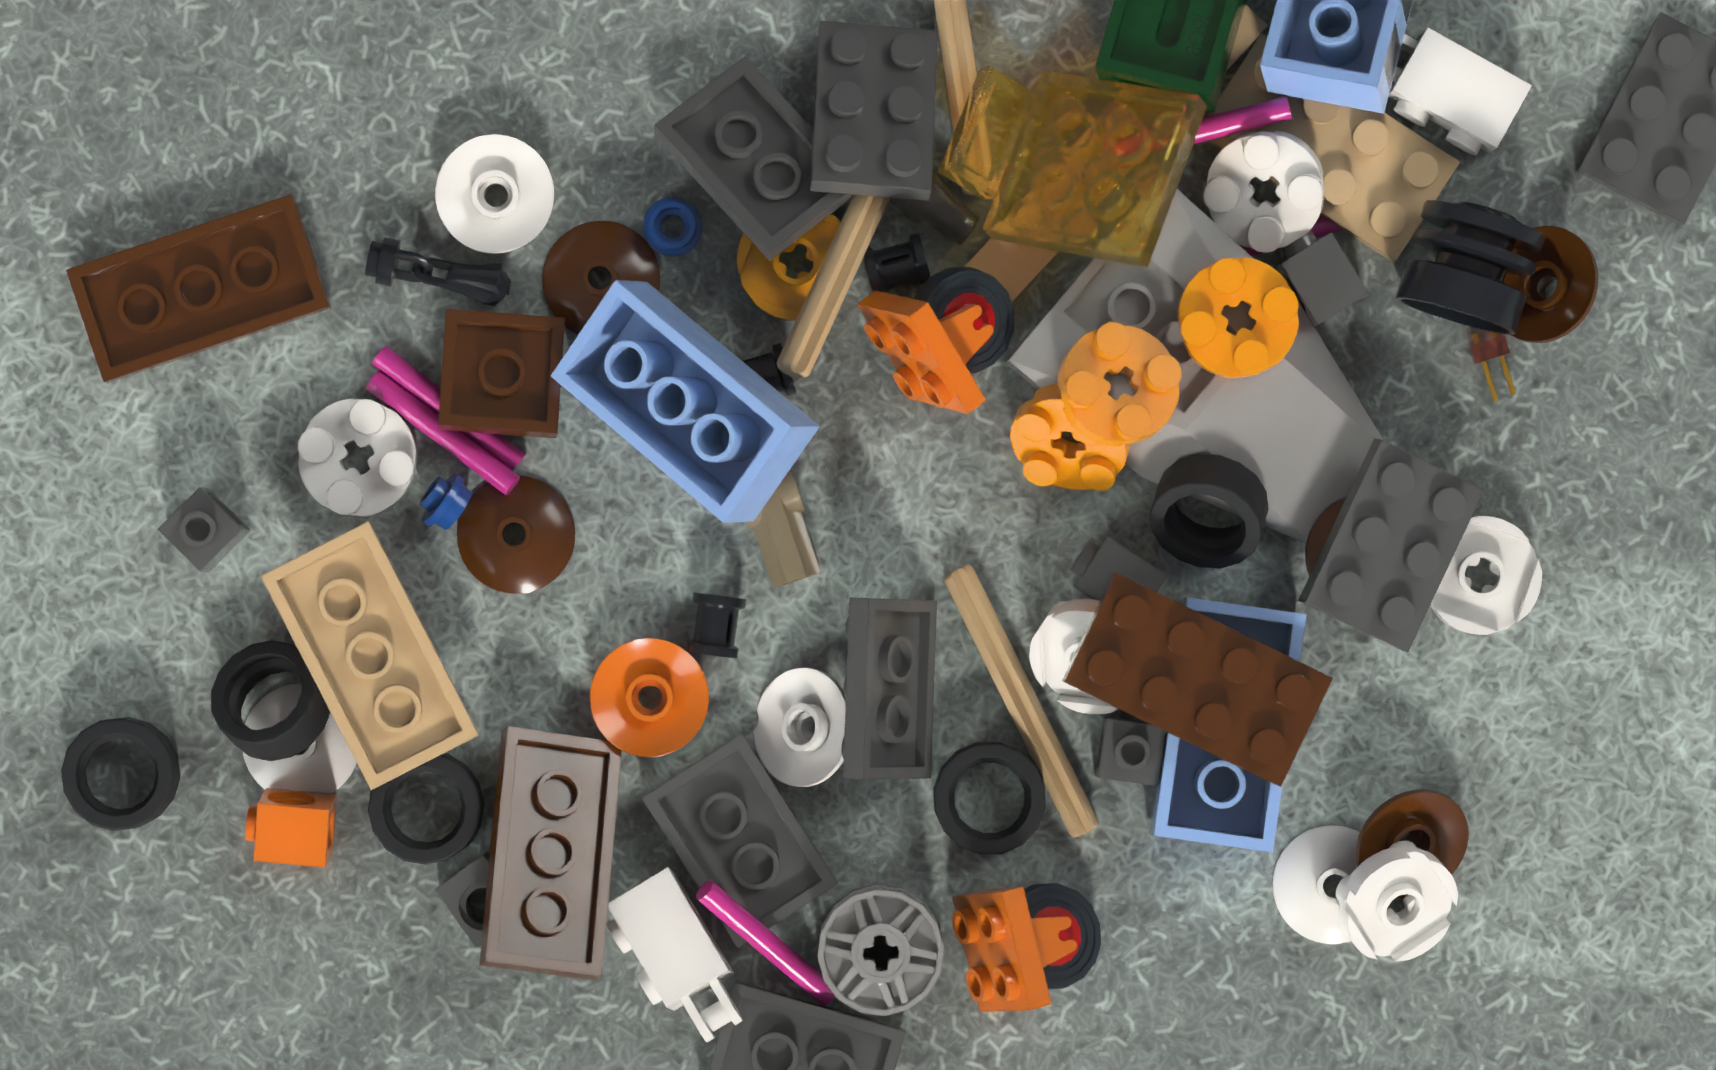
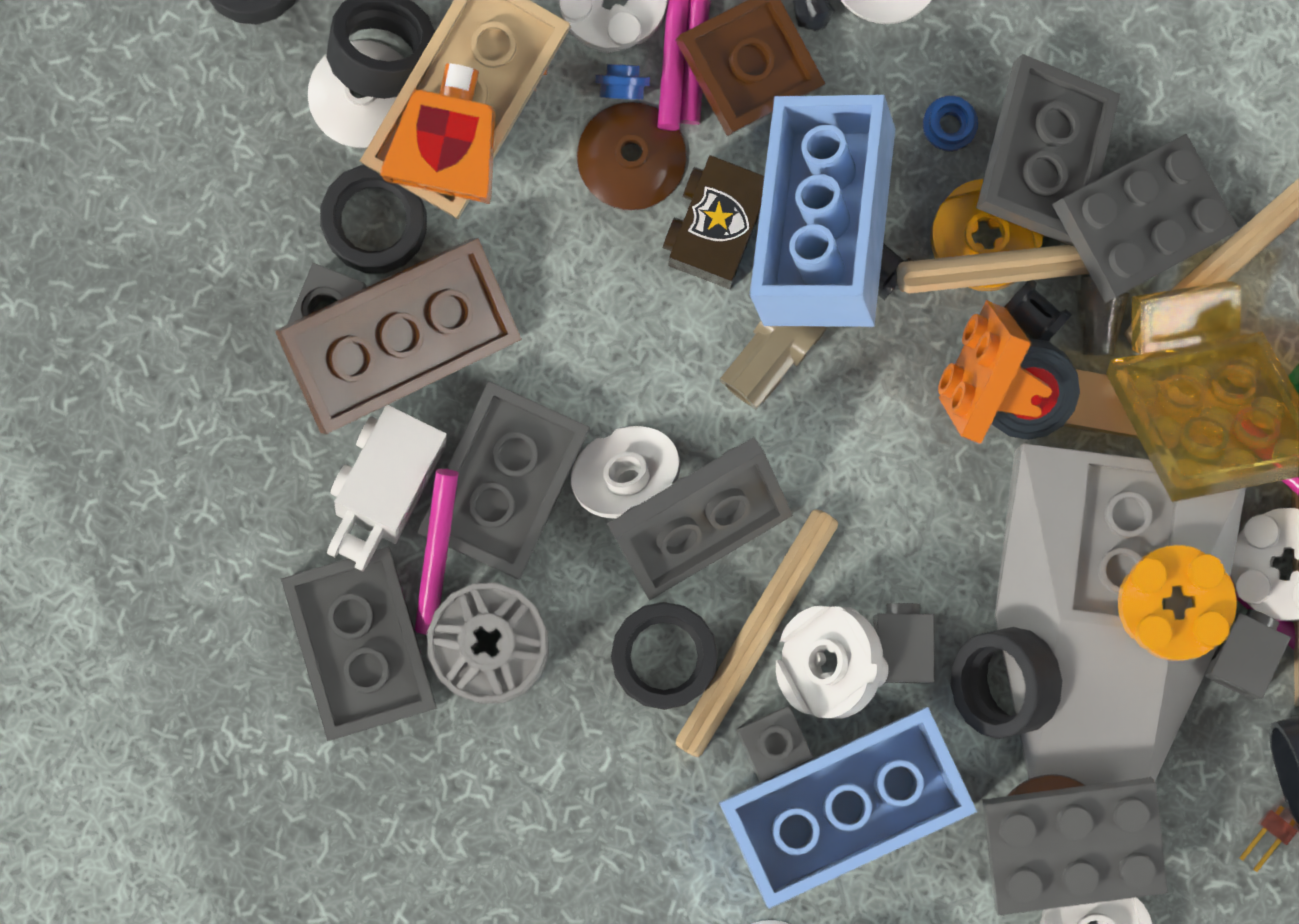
camera: 55 degrees right, 5 degrees down
(292, 827) = (292, 125): orange brick -> none
(406, 703) = (445, 140): none -> orange torso
(585, 249) = (887, 67): reddish brown dish -> none
(617, 703) = (563, 309): orange dish -> none
(629, 499) = (717, 222): none -> dark brown brick
(715, 625) = (662, 353): black bush -> none
(1024, 943) = (567, 758): orange plate -> none
(1055, 461) = (965, 540): light orange plate -> none
(1150, 373) = (1094, 536): light orange plate -> none
(1197, 679) = (869, 756): reddish brown plate -> none

